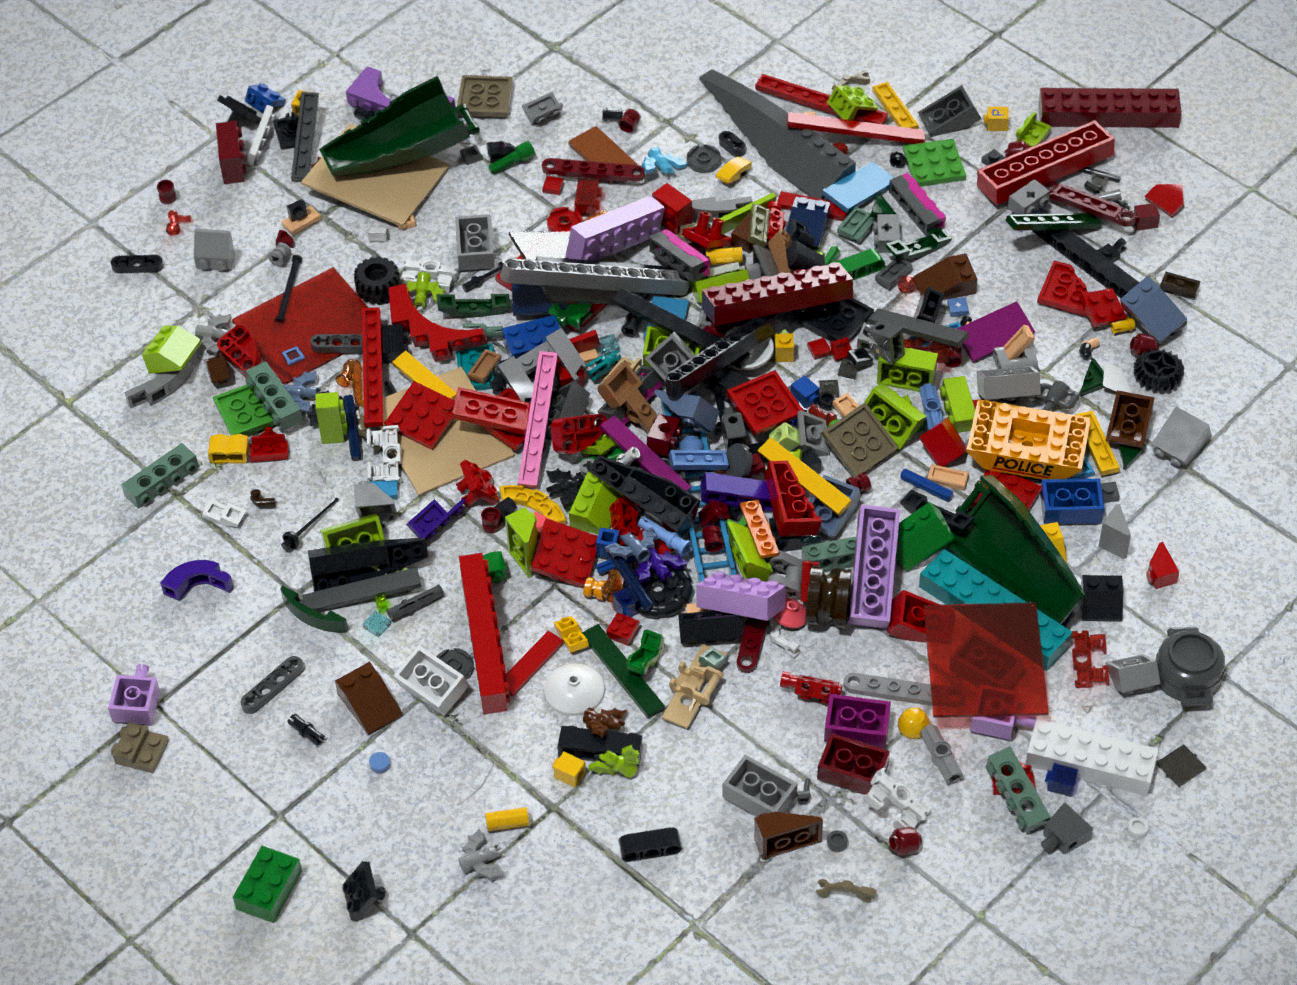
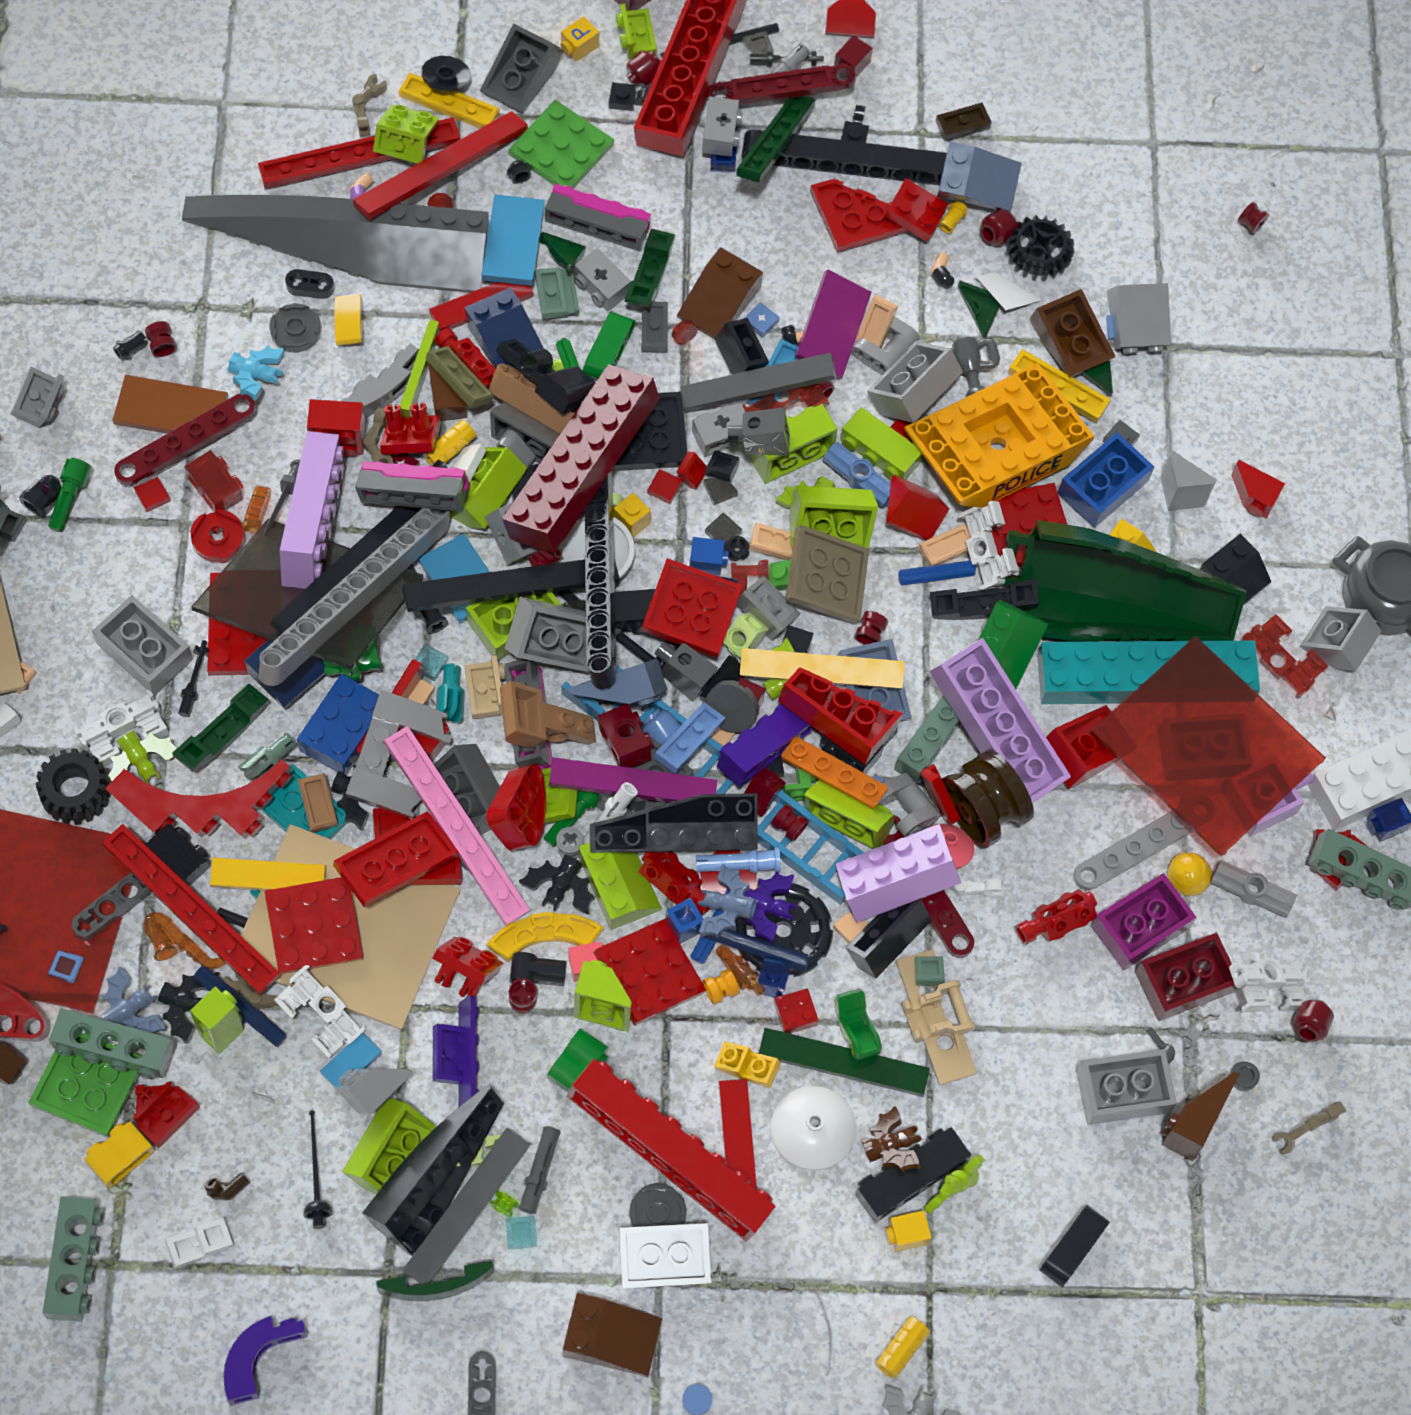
camera: 50 degrees left, 15 degrees up
(905, 91) = (446, 73): none -> black dish
(961, 488) = (991, 564): none -> white piece

